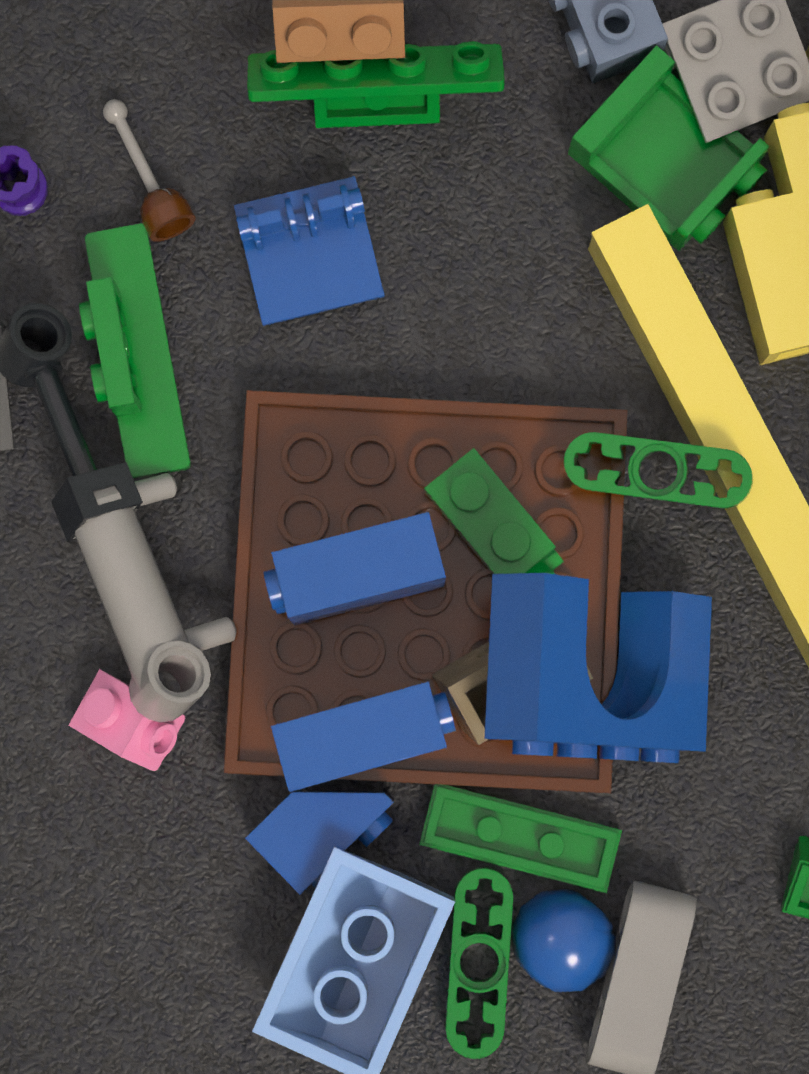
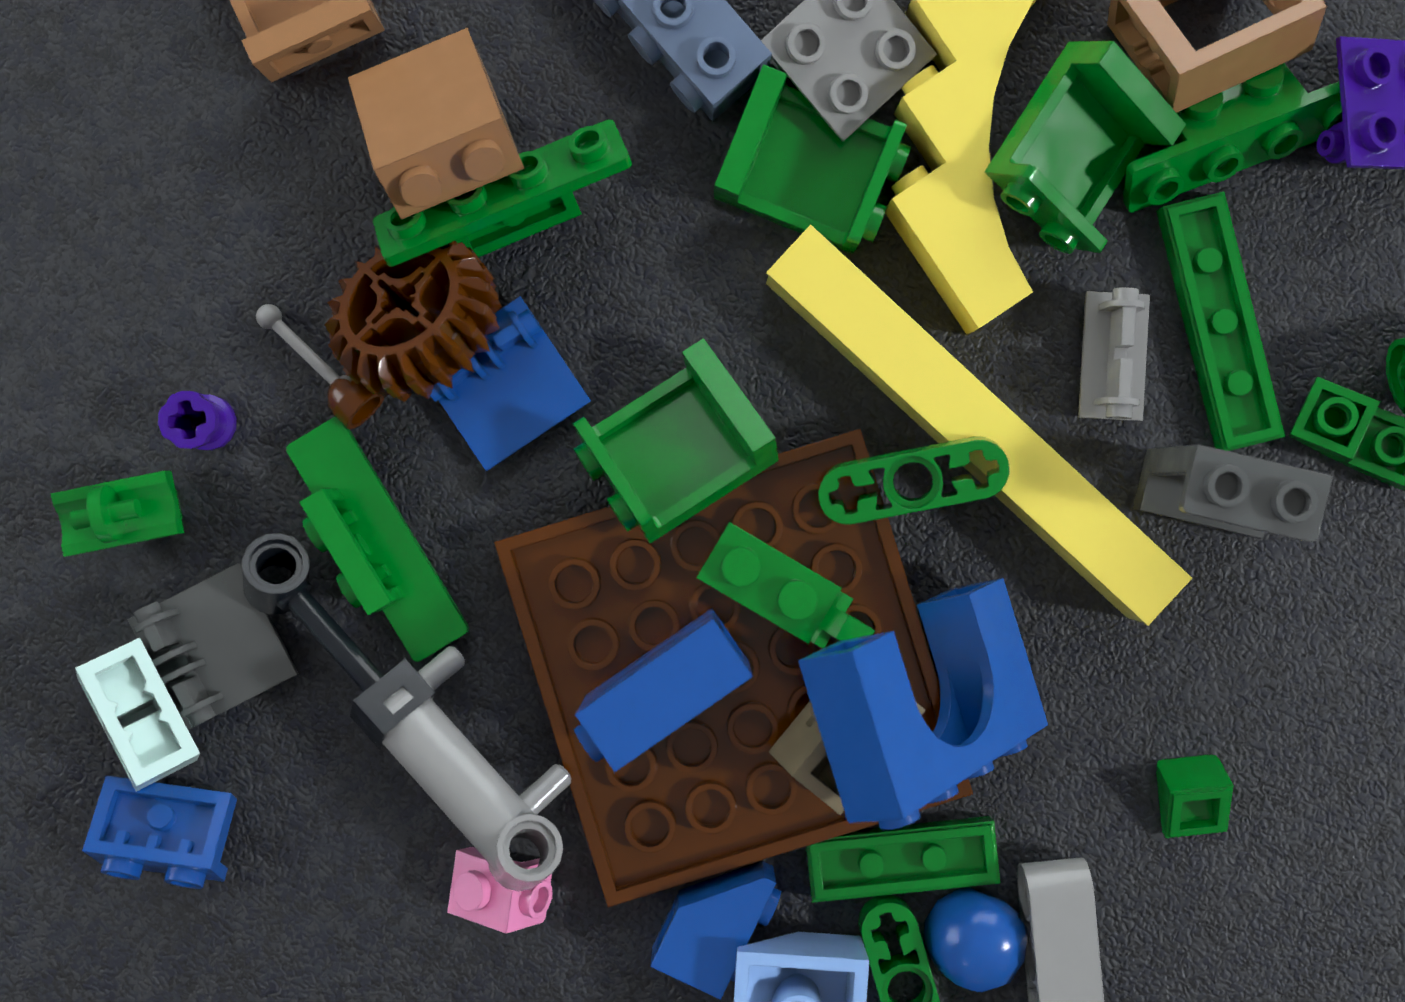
camera: 20 degrees left, 5 degrees up
(251, 158) = (406, 354): none -> reddish brown gear
(362, 735) = (725, 846): blue brick -> none
(451, 363) = (677, 446): none -> green panel

